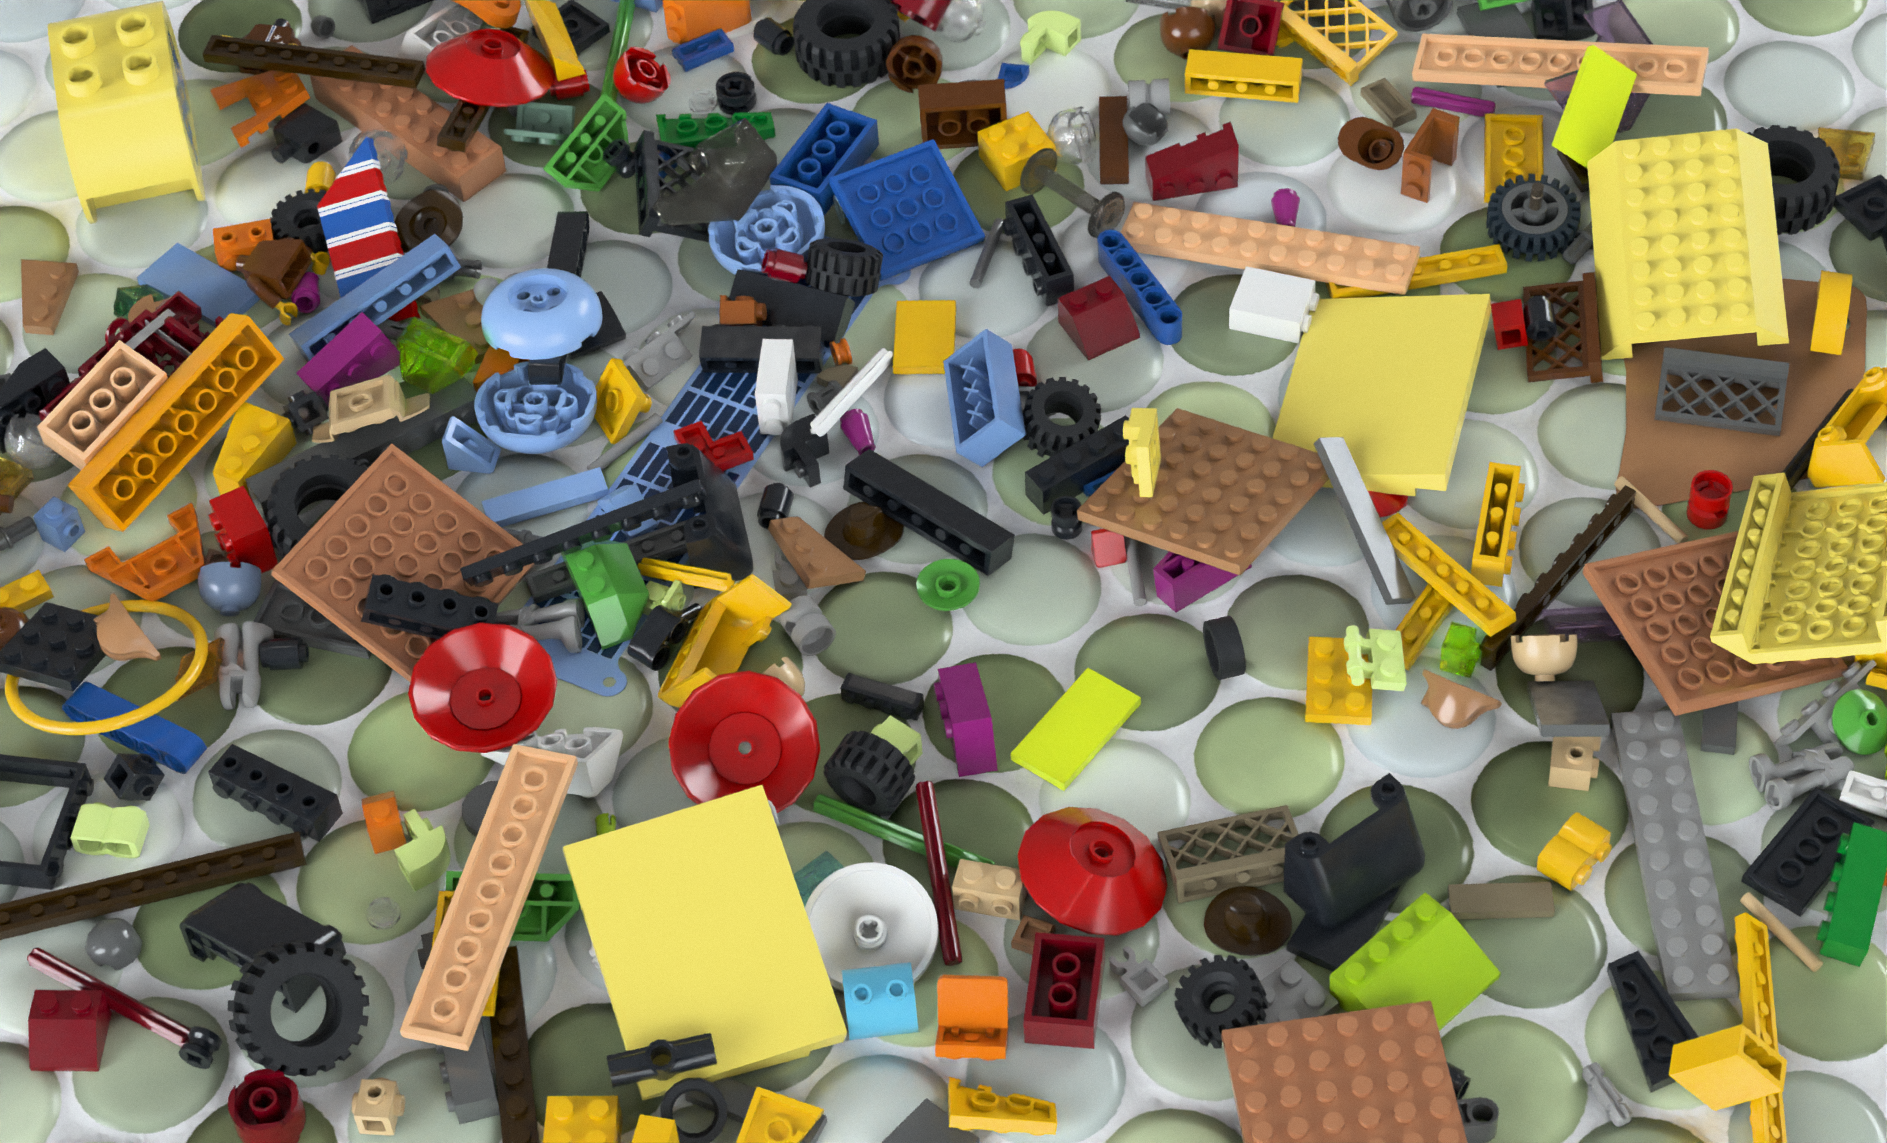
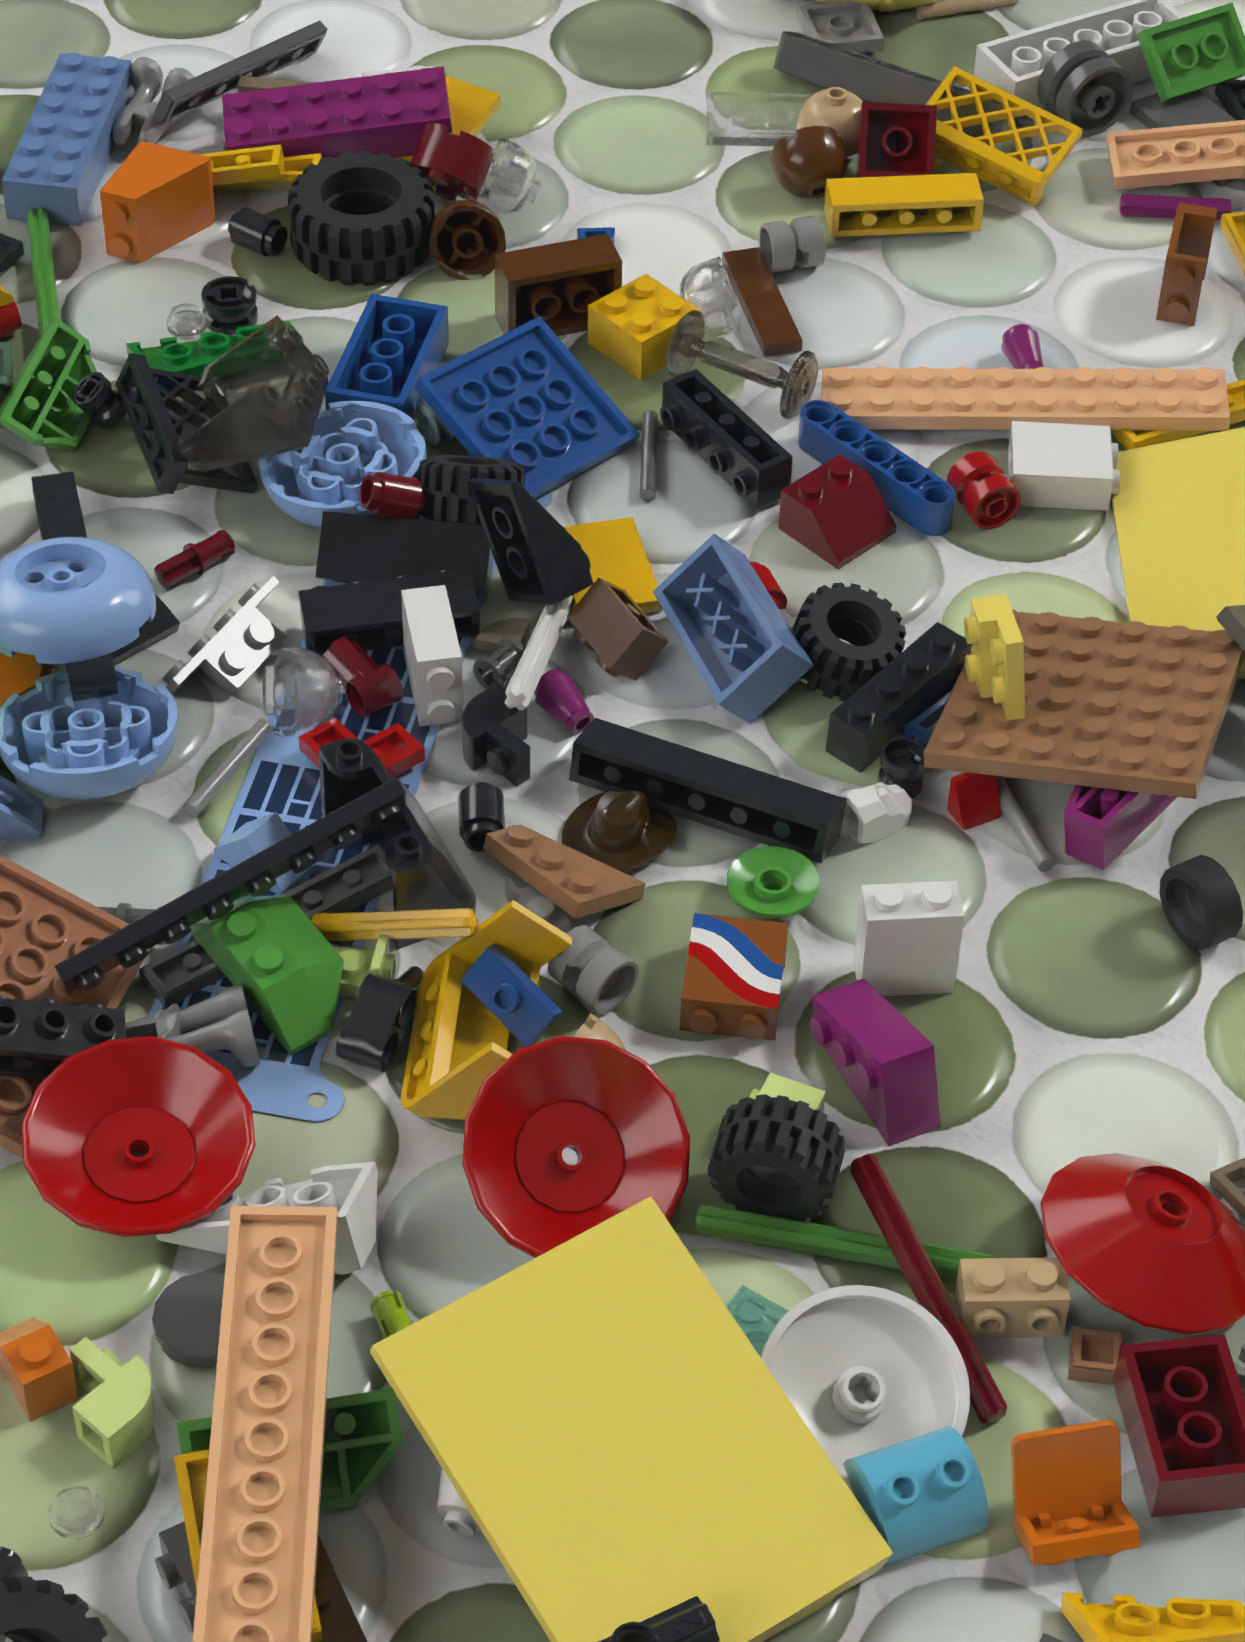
camera: 20 degrees left, 5 degrees down
(546, 498) = (140, 854): light blue tile -> none
(618, 400) = (208, 705): yellow tile -> none
(640, 76) = (91, 299): red cylinder -> none
(650, 287) = (195, 558): none -> dark red axle
(684, 398) = (299, 691): none -> clear cylinder
(703, 49) = (162, 261): blue tile -> none
(730, 396) = (365, 683): none -> dark red piece
(741, 311) = (346, 564): dark orange brick -> none
(746, 634) = (511, 995): none -> blue plate
(841, 352) = (499, 603): orange bush -> none
(868, 324) = (529, 546): none -> black slope
(882, 697) = (736, 1051): black piece -> none
(896, 644) = (733, 976): none -> panel
(910, 385) = (616, 630): none -> reddish brown brick
(1012, 640) = (909, 937): none -> white brick
(1038, 545) = (876, 812): none -> white rock
(1050, 31) = (629, 184): yellowish green brick -> none
(1075, 729) = (1031, 1050): neon yellow tile -> none
(1144, 125) = (800, 276): dark grey hair -> none
(1194, 167) = (889, 316): dark red wedge -> none
(1207, 316) = (984, 490): none -> red wheel
(1370, 143) = (1104, 260): reddish brown piece -> none
(1388, 103) = (1094, 218): dark tan tile -> none

